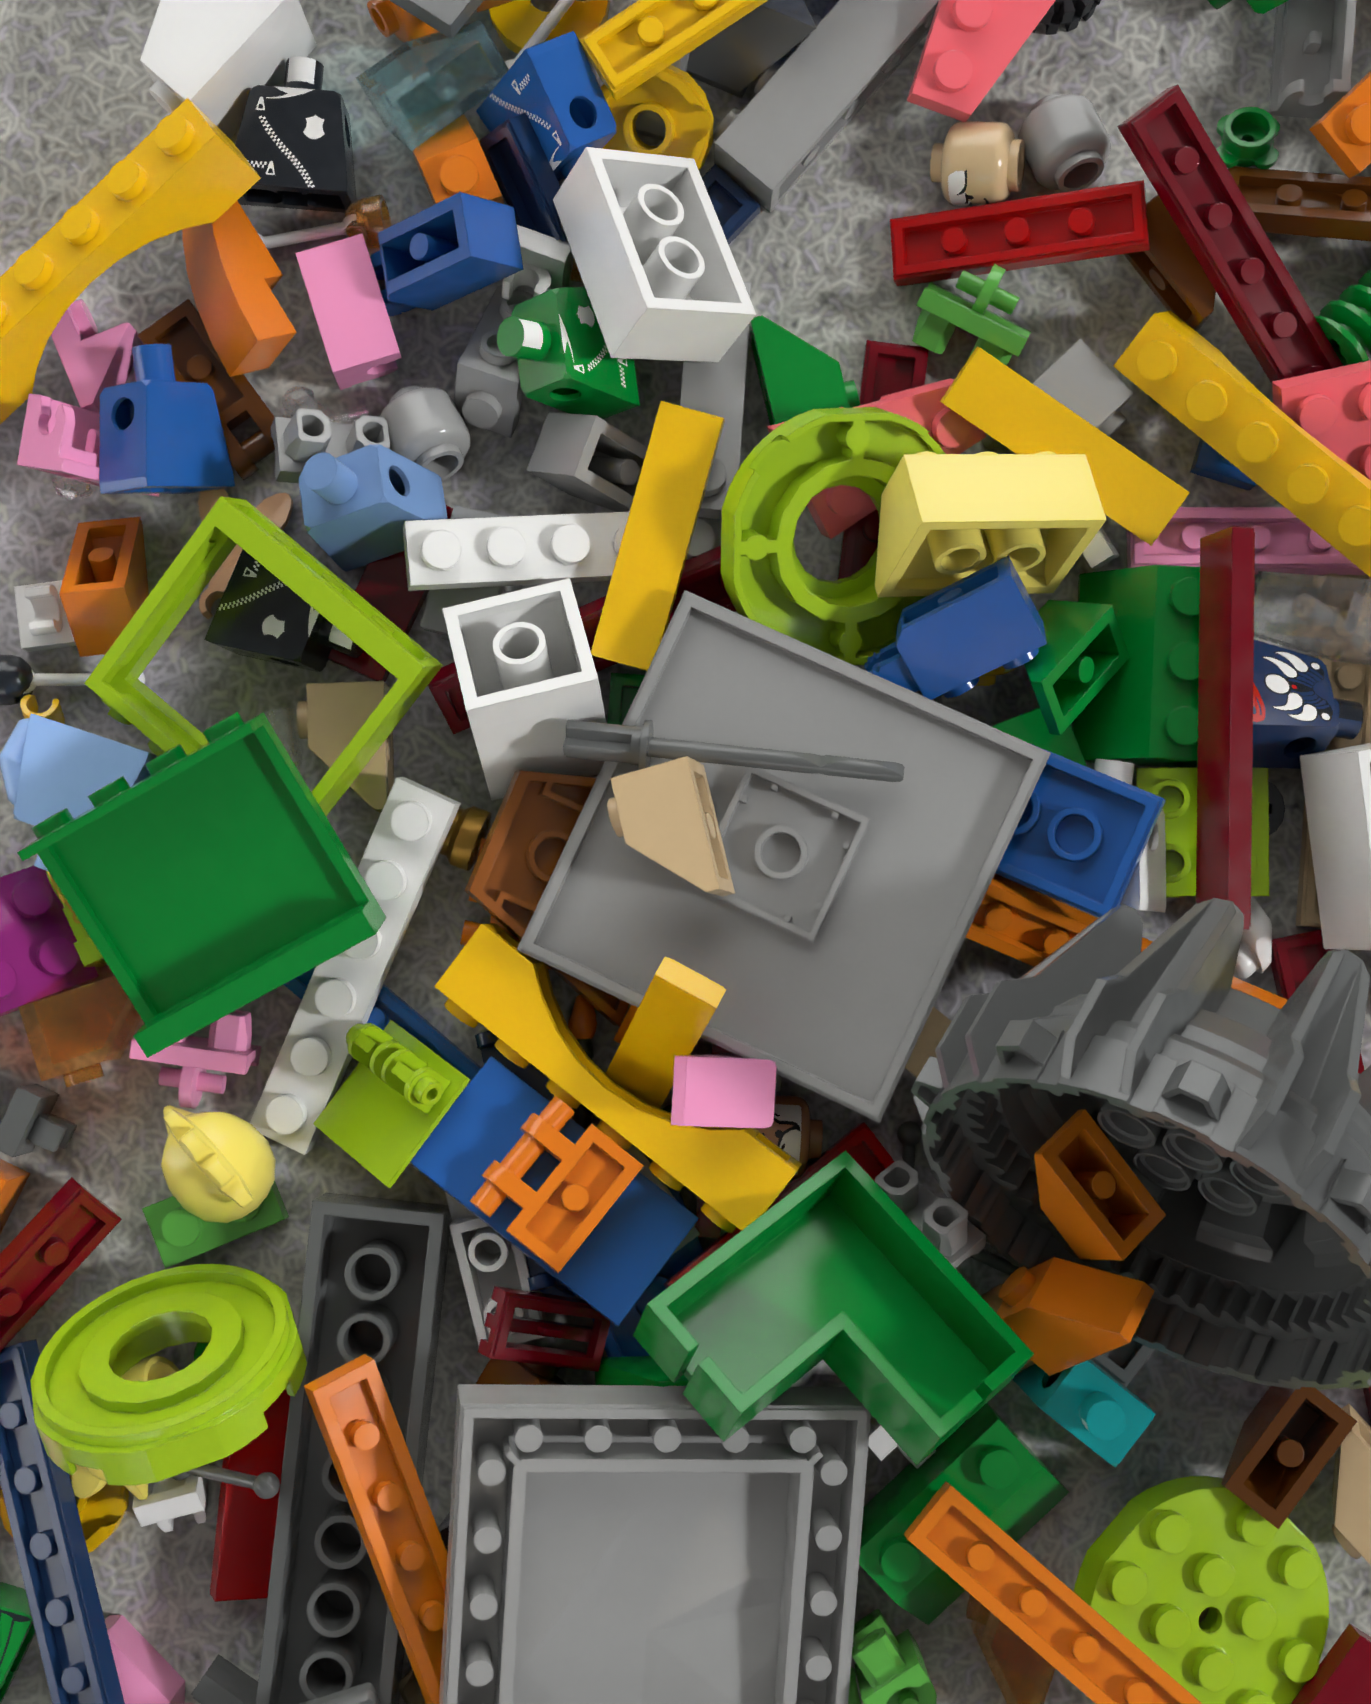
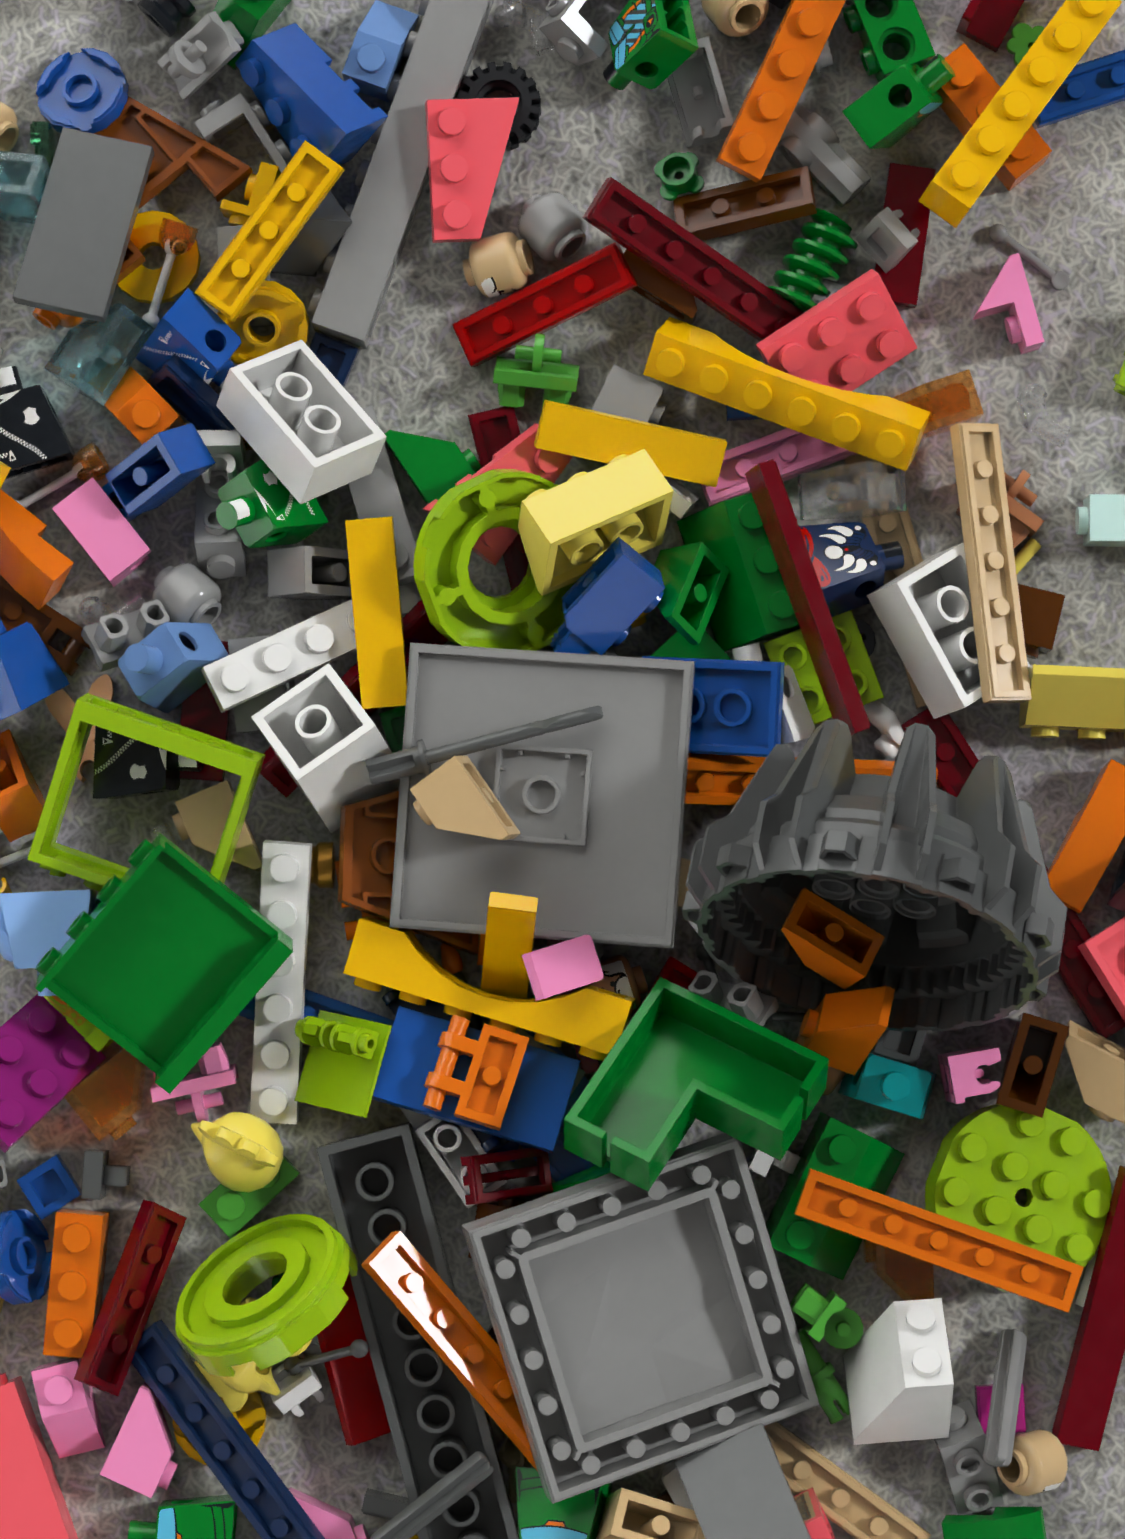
camera: 25 degrees left, 0 degrees up
(1191, 1422) = (961, 1071): none -> bright pink hinge

